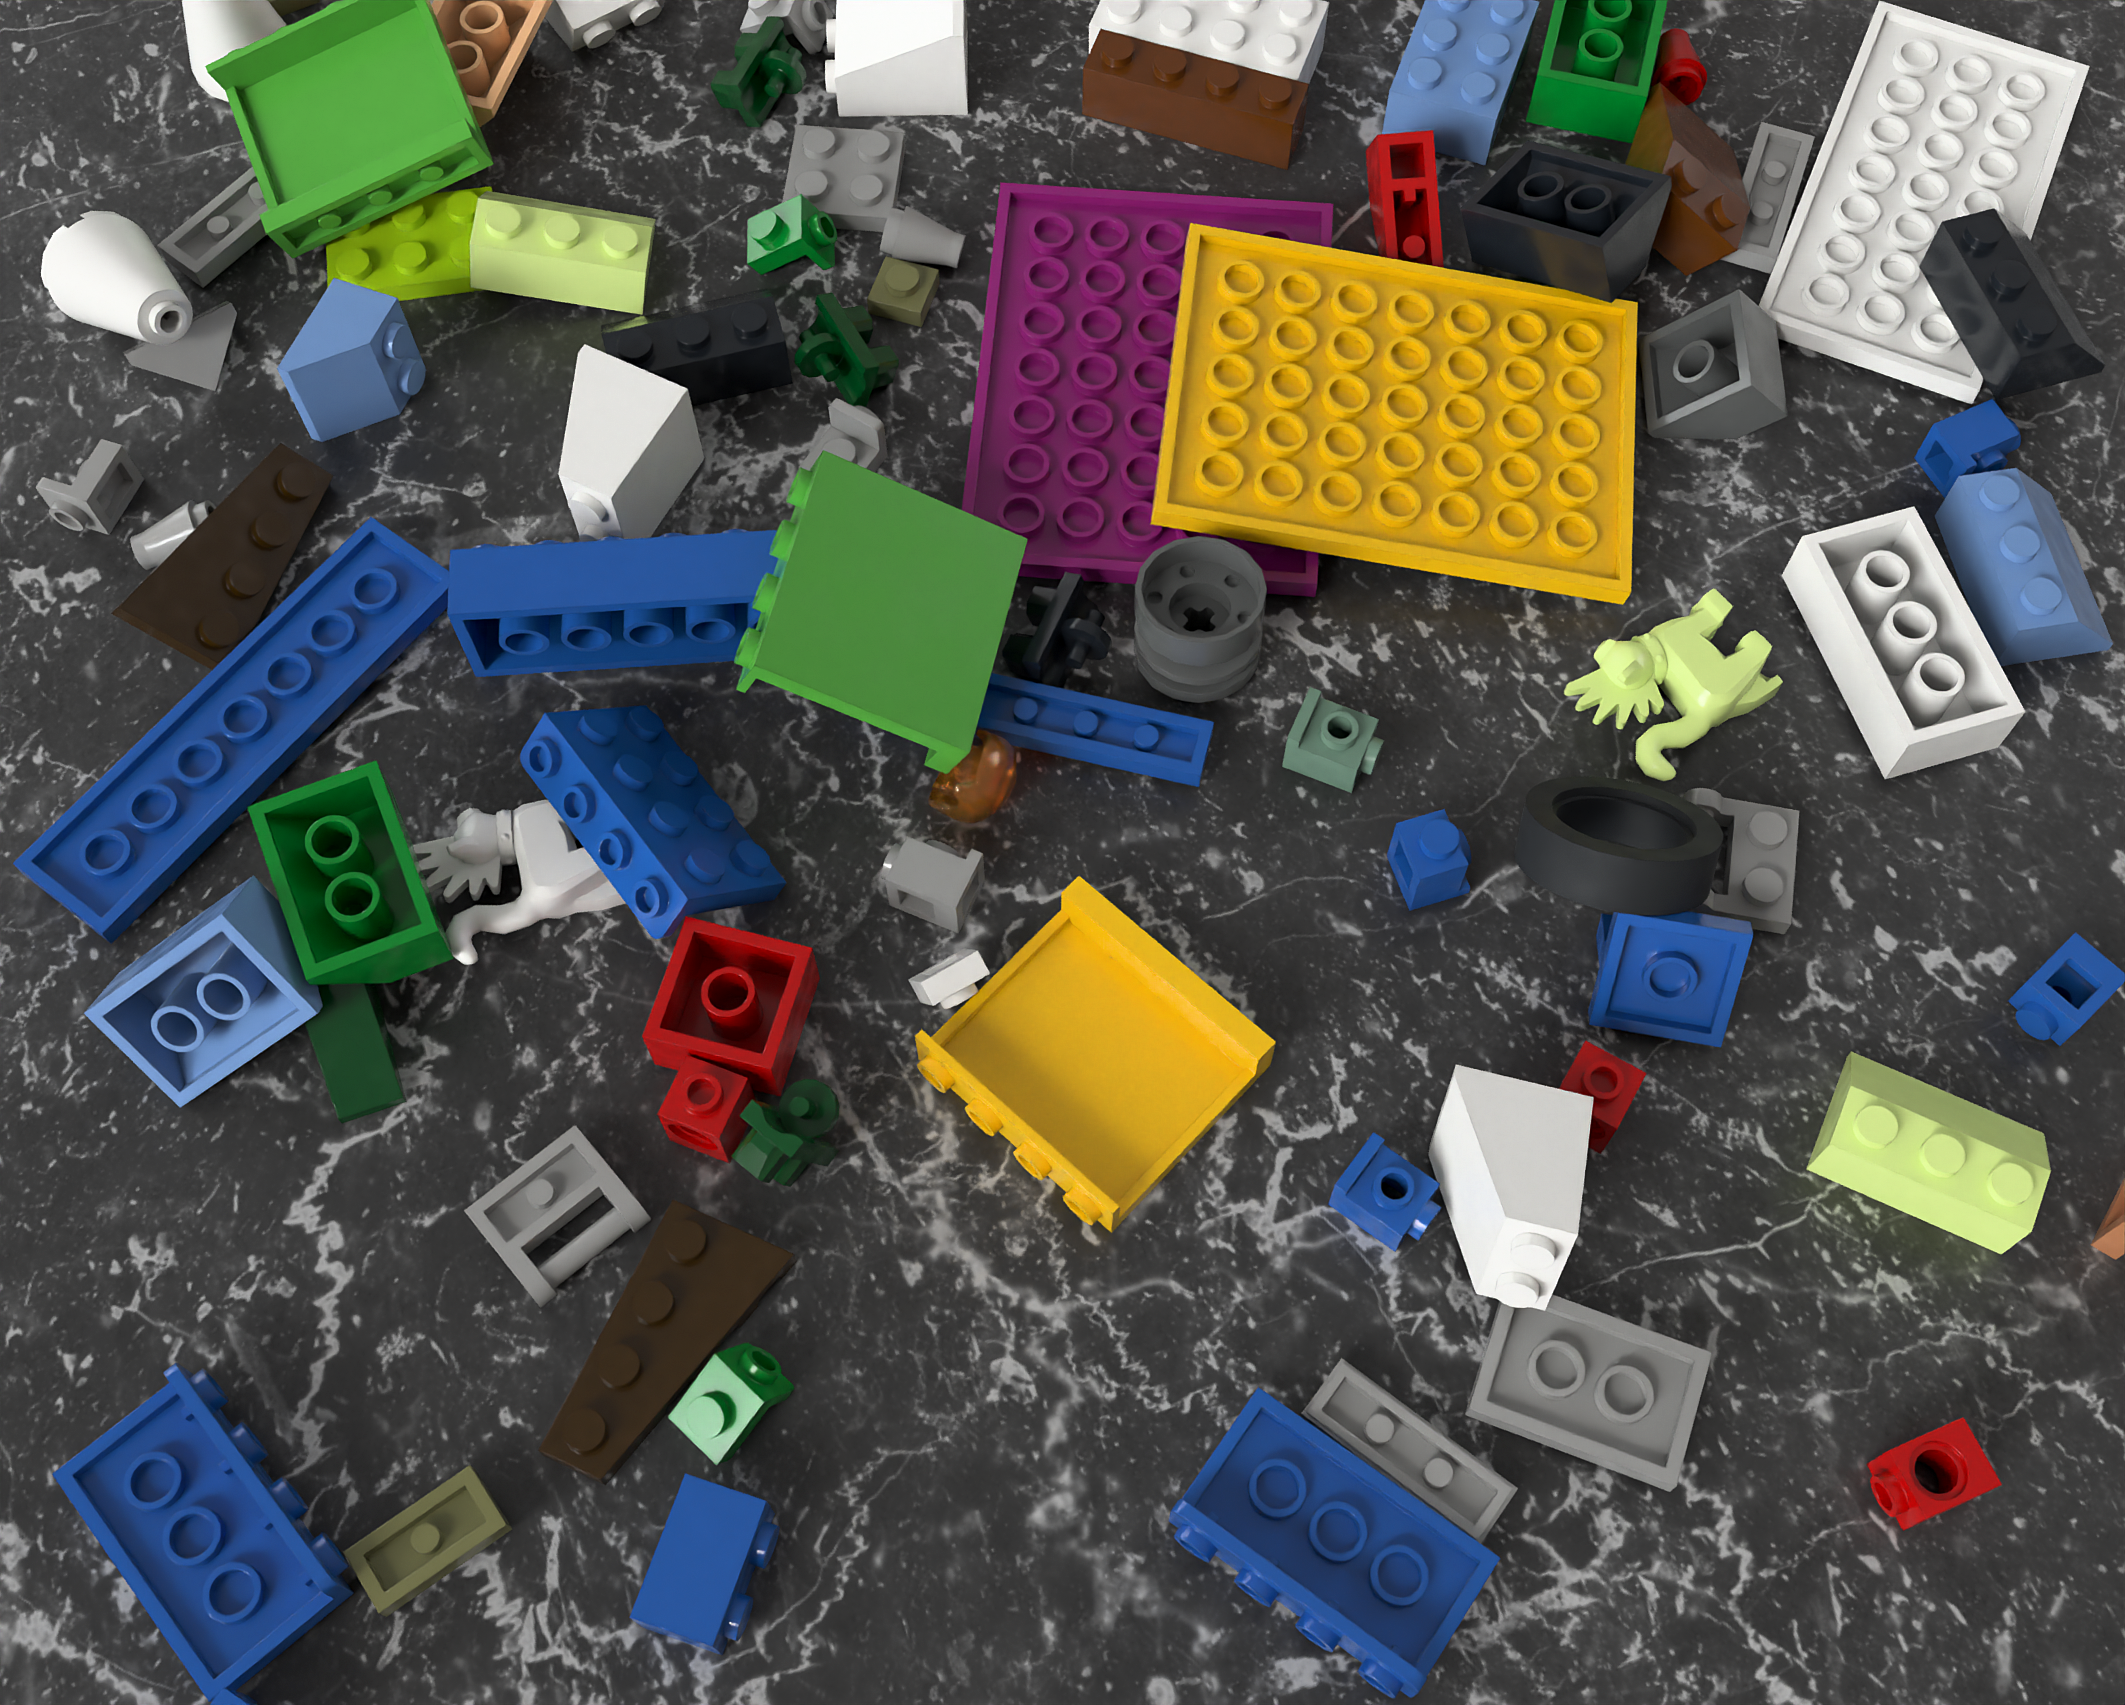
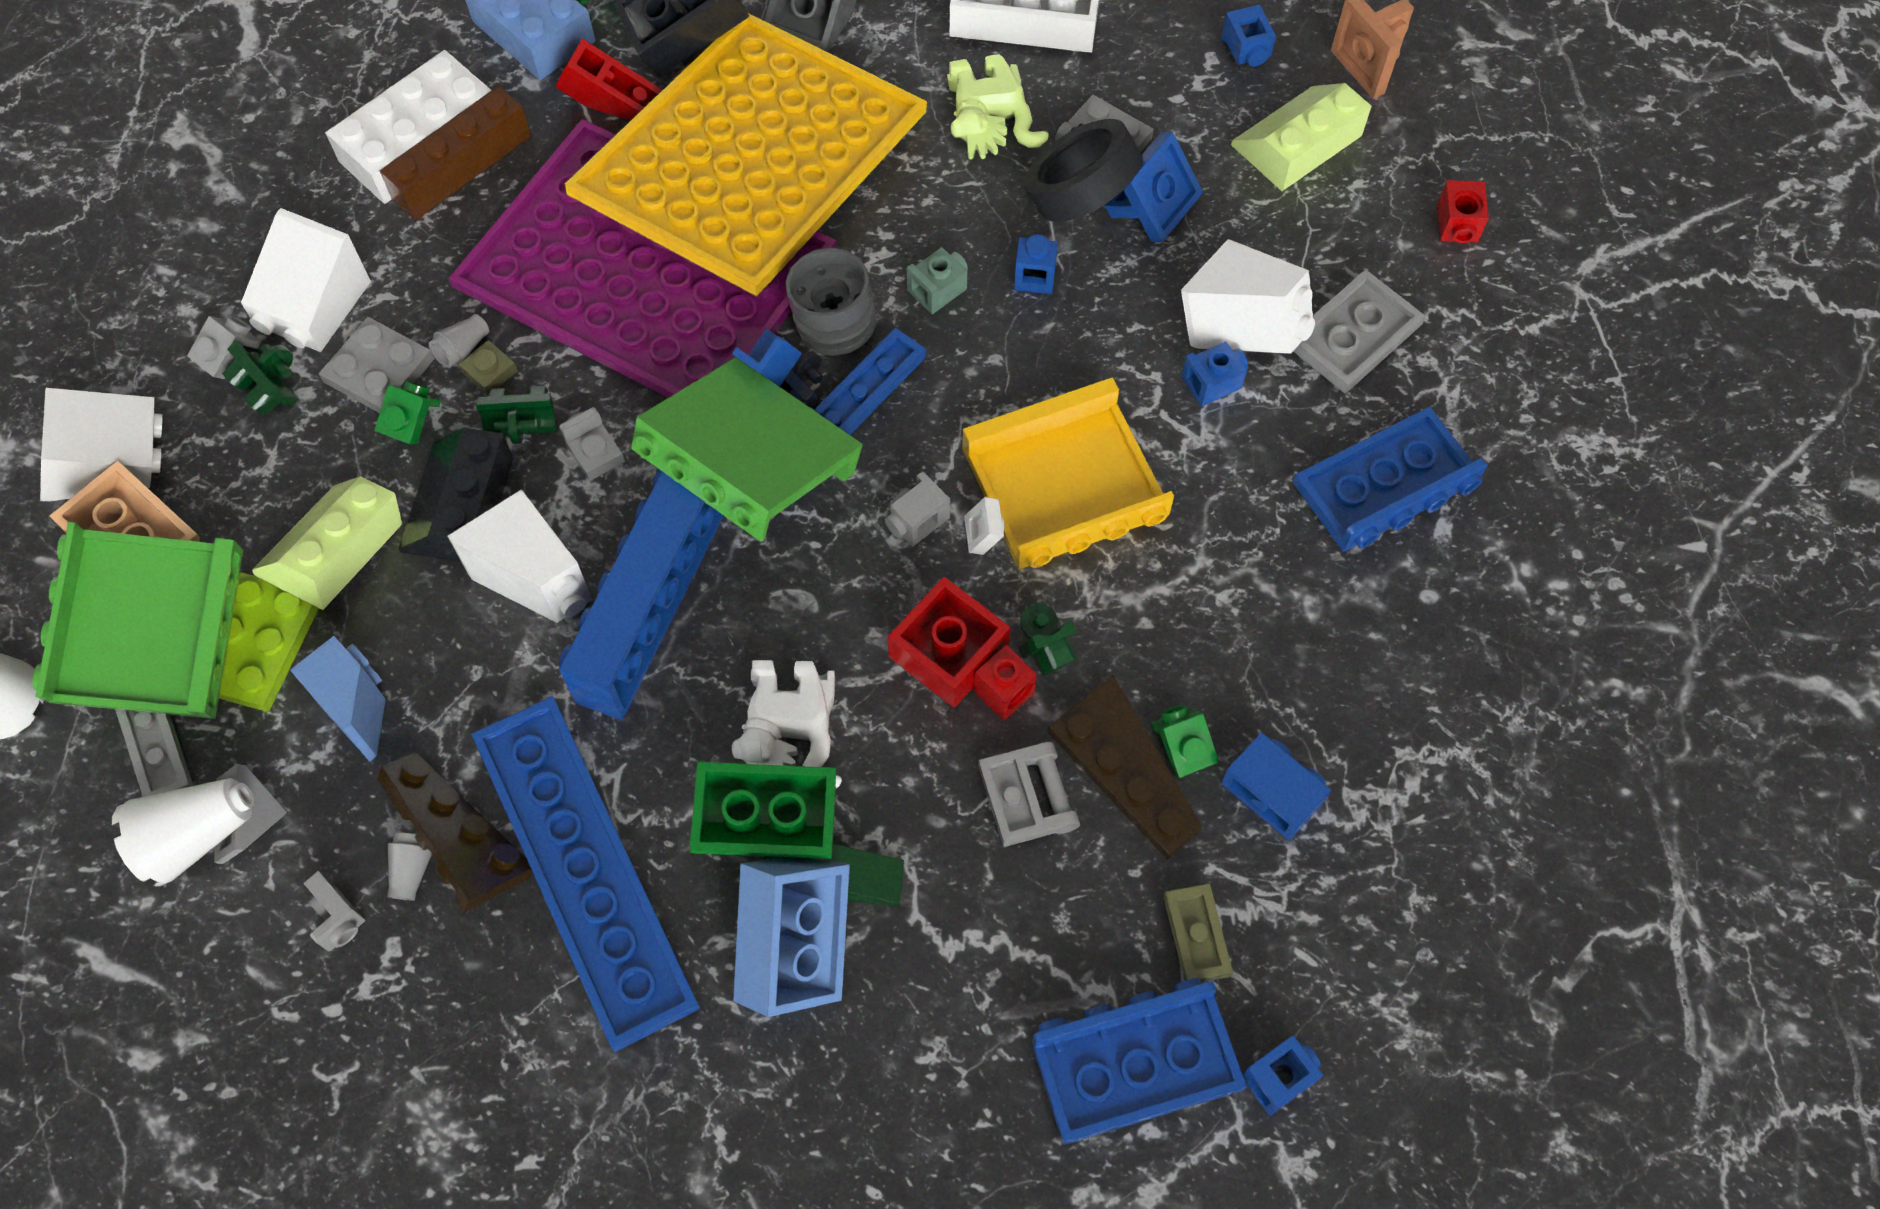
camera: 65 degrees left, 0 degrees up
(646, 815) = (797, 643): blue bracket -> none
(978, 782) = (873, 465): clear orange hair -> none
(1049, 583) = (770, 357): none -> blue panel
(1408, 1450) = (1350, 426): light grey tile -> none
(1610, 1083) = (1201, 246): red brick -> none

